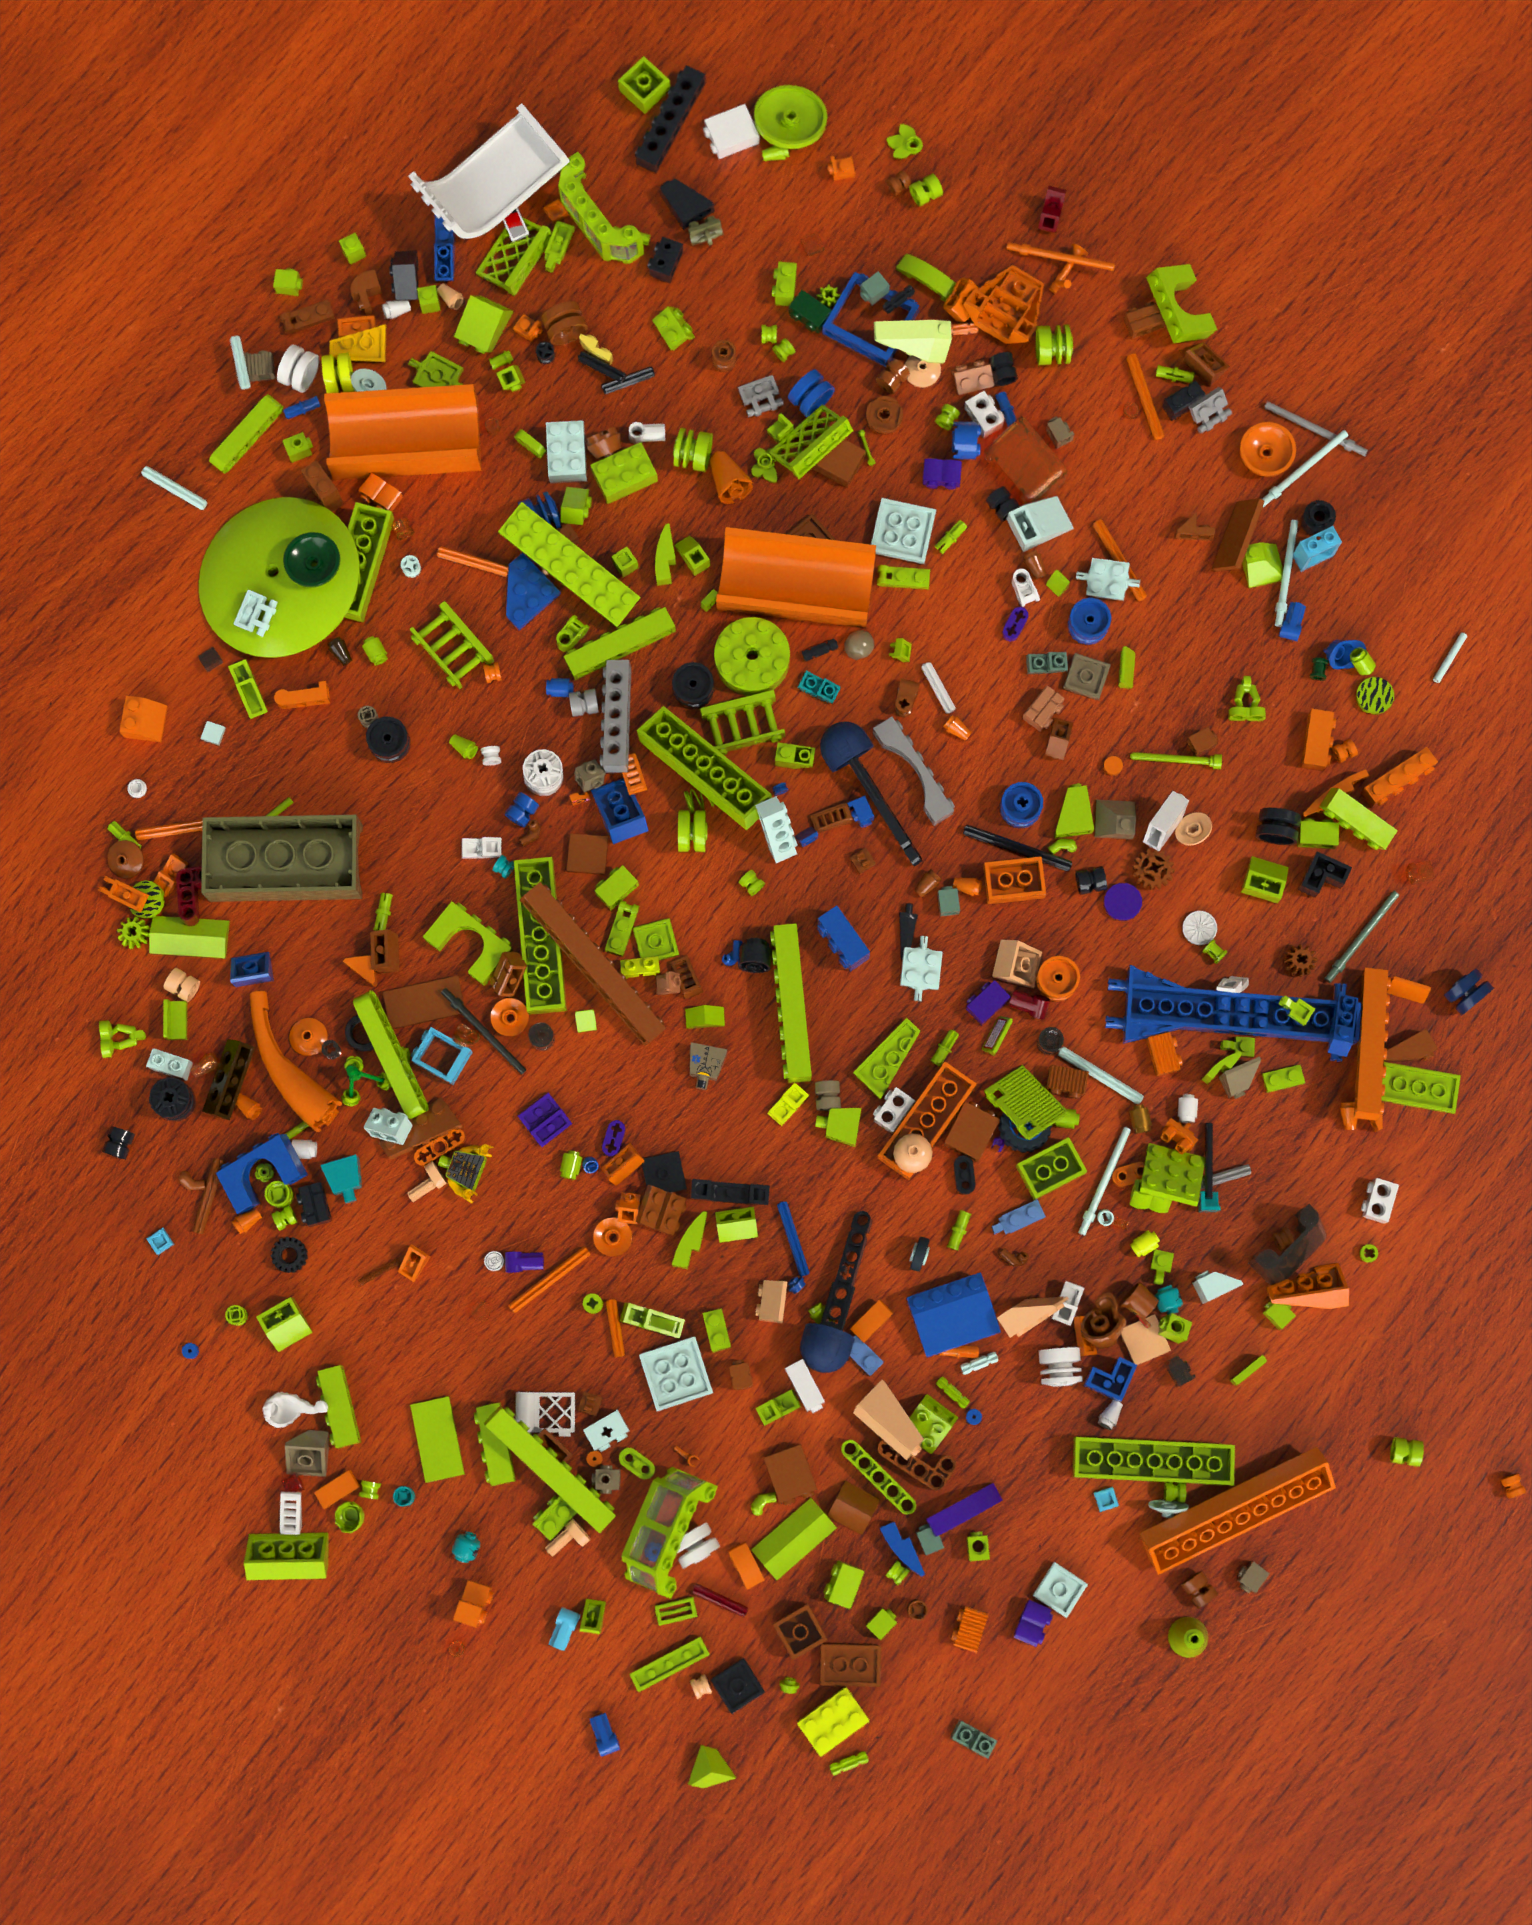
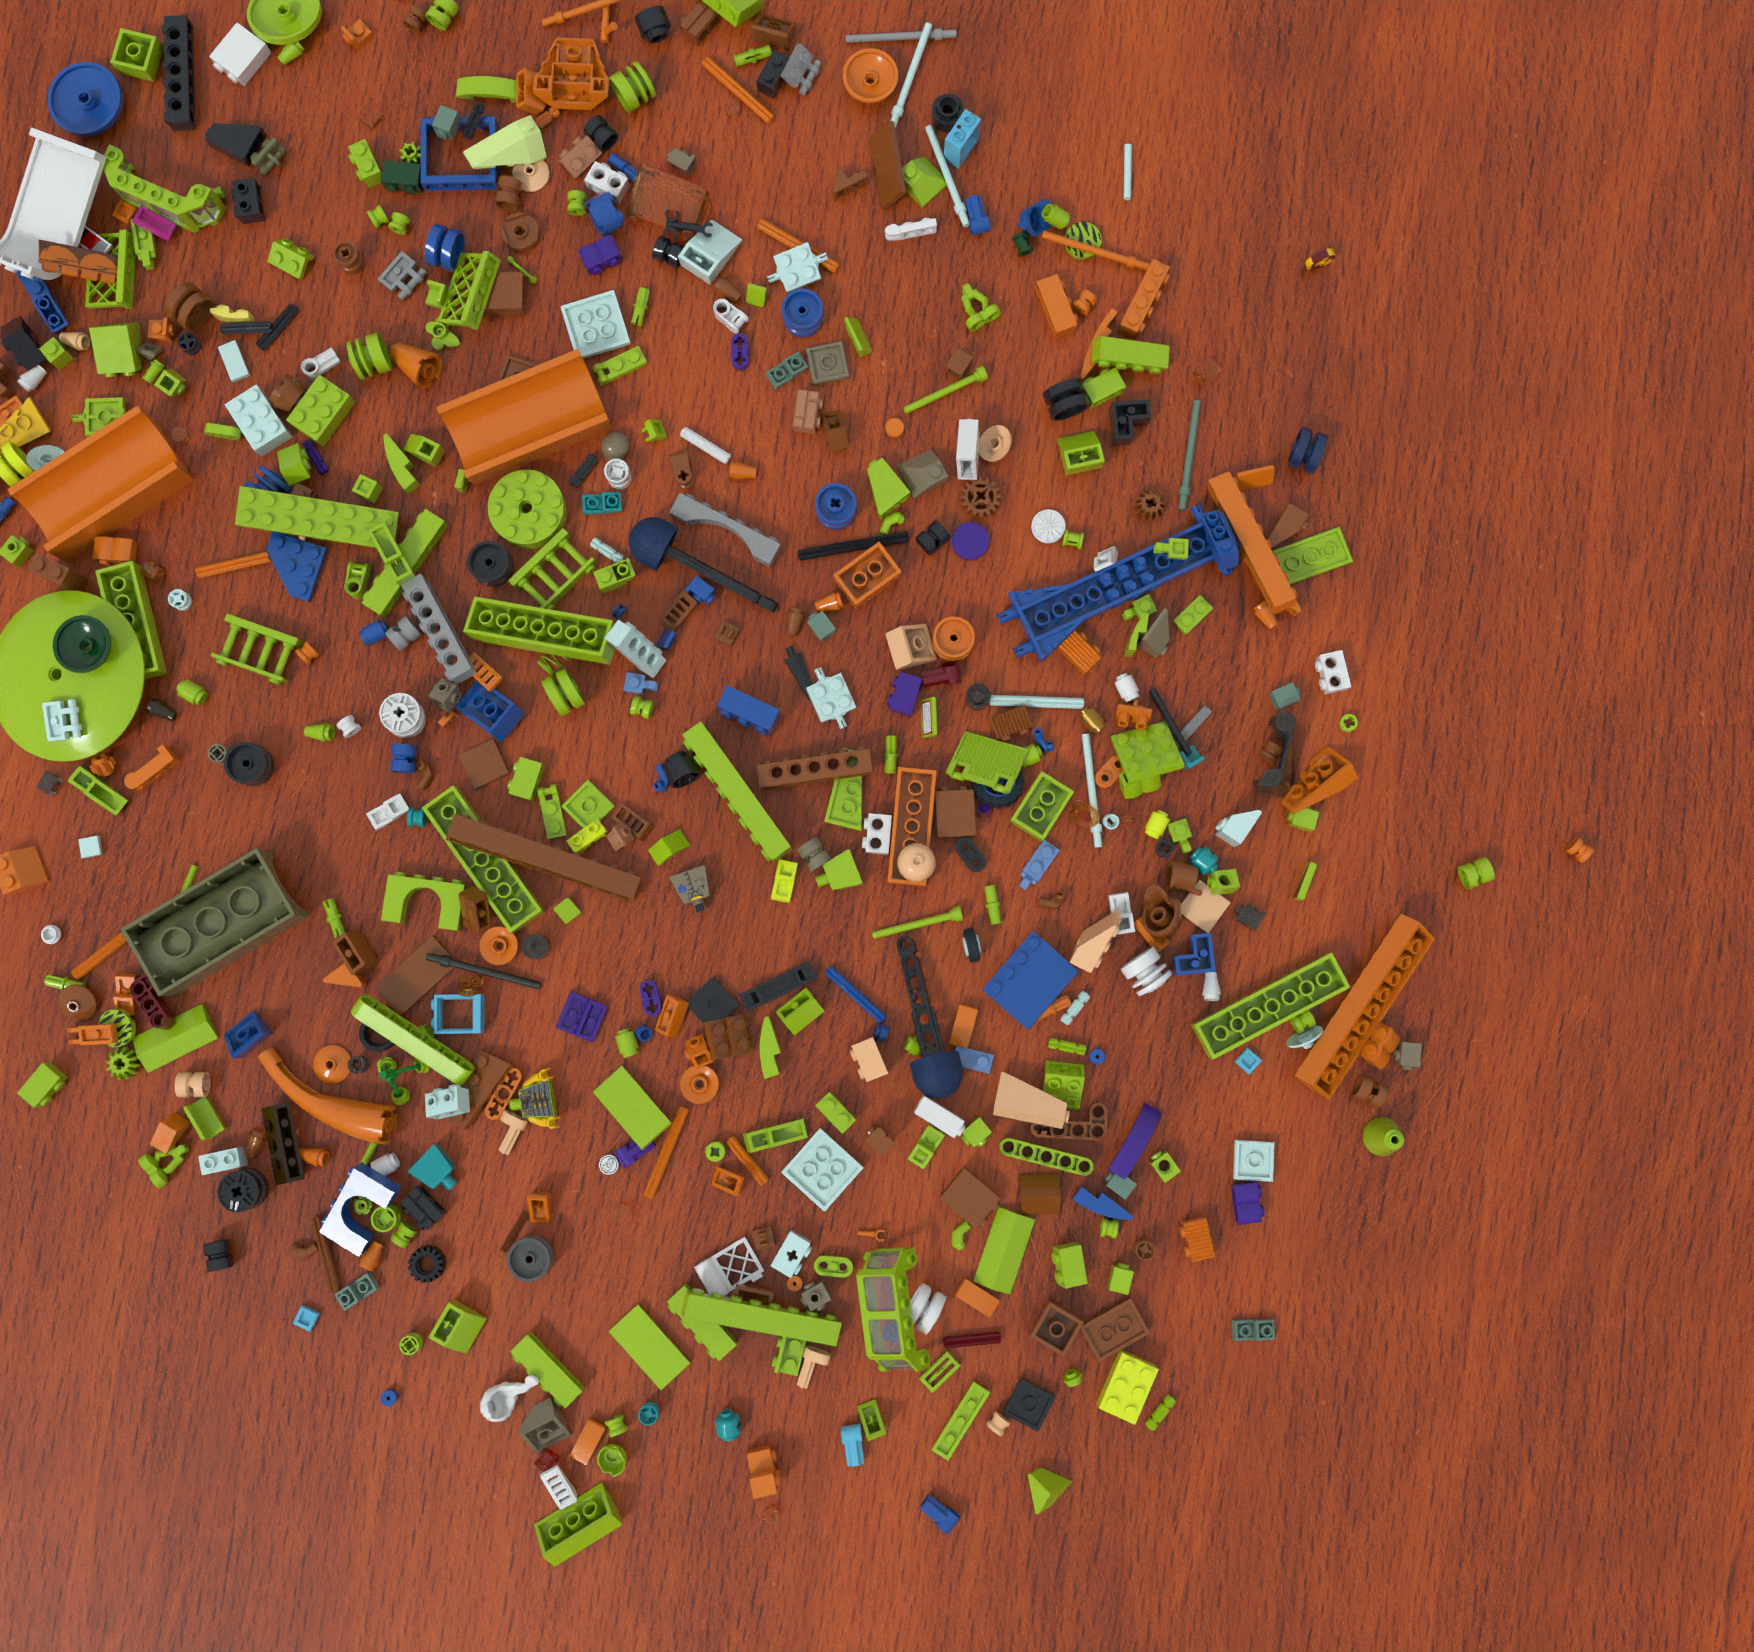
camera: 30 degrees left, 5 degrees up
(56, 912) = (42, 1085): none -> lime brick
(138, 1014) = (169, 1132): none -> orange slope
(217, 1243) = (357, 1291): none -> sand green slope
(264, 669) = (102, 764): none -> orange gear
(392, 1305) = (542, 1255): none -> dark grey wheel
(492, 231) = (76, 259): none -> orange windscreen
(508, 340) = (150, 351): none -> dark tan slope
(543, 1223) = (632, 1107): none -> lime tile
(574, 388) = (234, 361): none -> light aqua tile
(575, 235) = (154, 223): none -> dark pink tile
(578, 98) = (85, 99): none -> blue dish
(589, 1335) = (728, 1181): none -> orange slope
(596, 509) = (315, 457): none -> dark purple axle
(614, 629) = (391, 553): none -> lime slope
(760, 860) = (637, 683): none -> medium blue plate
(799, 730) = (606, 550): none -> light aqua axle
(828, 1420) = (976, 1133): none -> lime brick
(848, 670) = (618, 474): none -> white wheel
(915, 1044) = (863, 768): none -> dark orange brick
(919, 1218) = (953, 914): none -> lime piece
(1019, 482) = (672, 224): none -> black bar
(1084, 1110) = (1040, 740): none -> blue arm
(1084, 1188) = (1079, 806): none -> clear orange piece
(1103, 300) = (653, 24): none -> black piece
(1135, 1273) = (1162, 854): none -> black bush
(1226, 601) = (910, 229): none -> white hinge
(1230, 1555) = (1382, 1043): none -> orange brick
(1324, 1197) = (1285, 696): none -> sand green brick
(1405, 736) = (1129, 261): none -> orange bar

